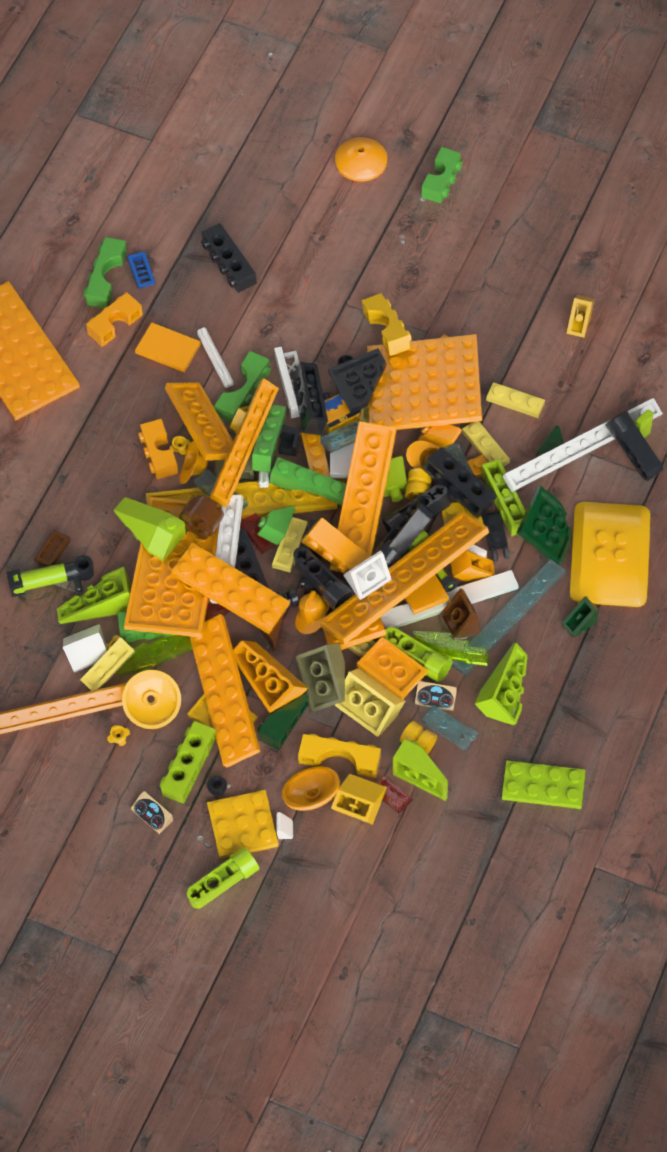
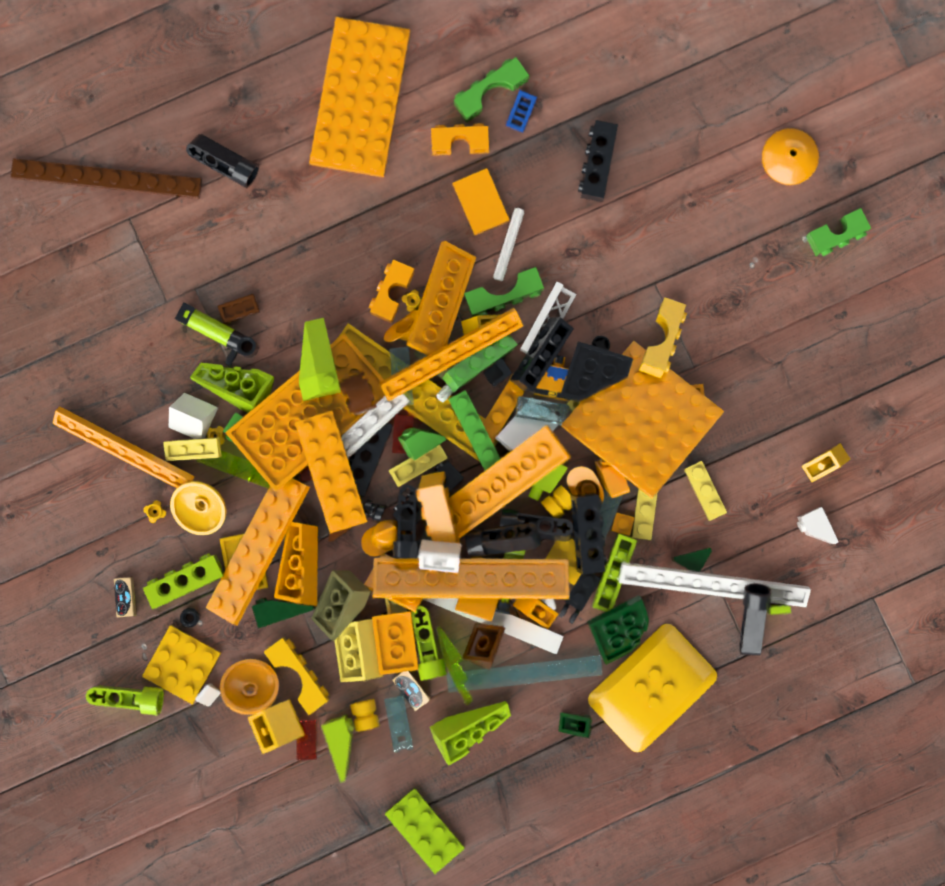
camera: 40 degrees right, 25 degrees up
(617, 358) = (817, 526): none -> white slope

